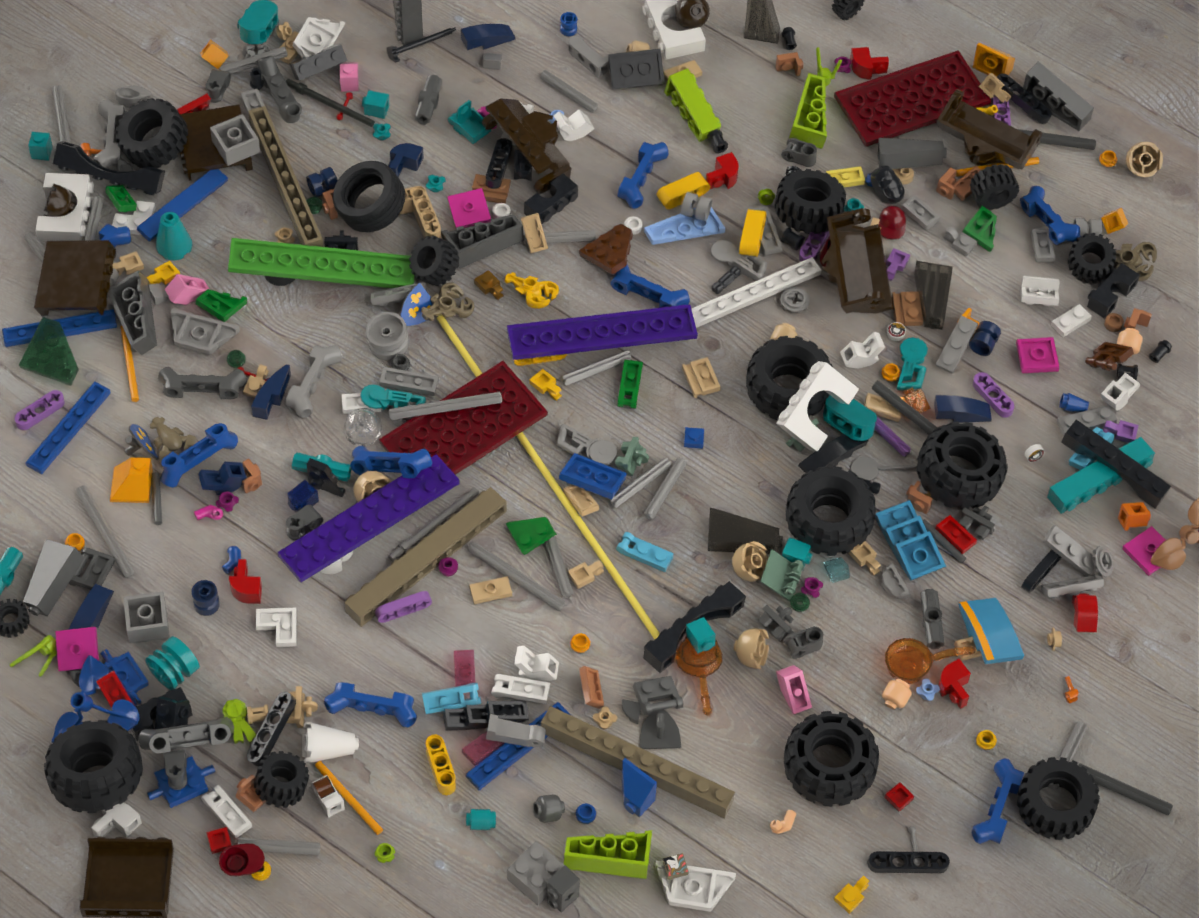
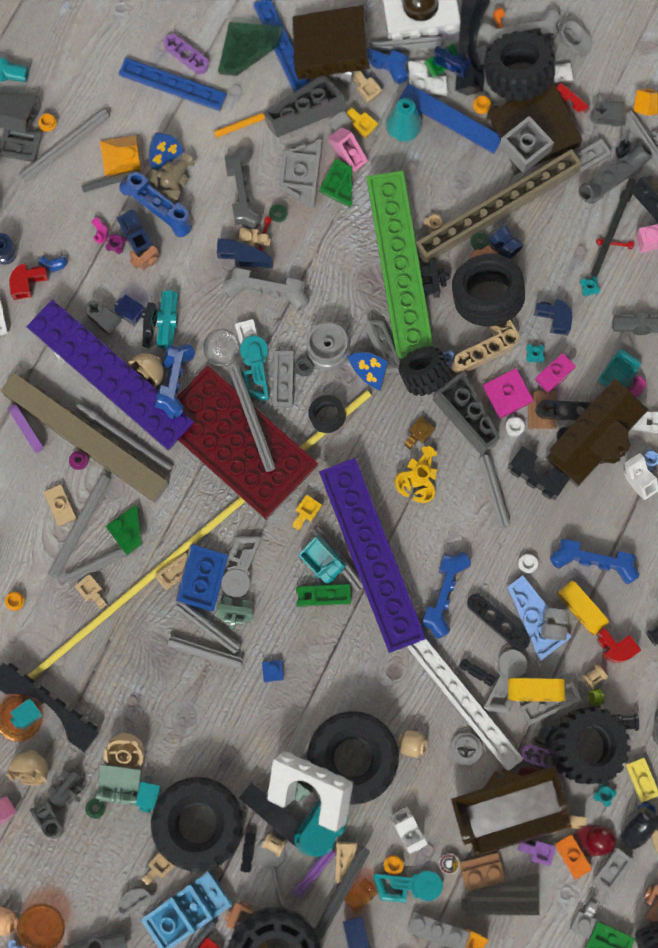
camera: 80 degrees right, 20 degrees up
(131, 183) = (450, 62): none -> clear blue plate
(175, 178) = (481, 104): none -> light orange plate
(376, 104) = (621, 273): teal brick -> none
(445, 340) = (325, 401): none -> black tyre
(447, 305) = (382, 397): dark tan animal -> none
(460, 167) = (555, 373): none -> dark pink brick
(534, 233) = (485, 463): tan plate -> none
(596, 376) = (322, 559): none -> teal piece
(609, 249) = (485, 545): reddish brown plate -> none
(645, 552) = (128, 645): medium azure plate -> none
(682, 256) = (500, 619): none -> black beam
(701, 377) = (346, 666): tan plate -> none
(731, 531) = (161, 733): clear smoke slope -> none
(747, 193) = (594, 677): none -> tan bush
(812, 582) = (110, 818): magenta plate -> none
(837, 569) = (141, 840): clear light blue slope -> none
(858, 458) = (274, 844): none -> tan bush
(904, 239) = (573, 856): none -> orange plate

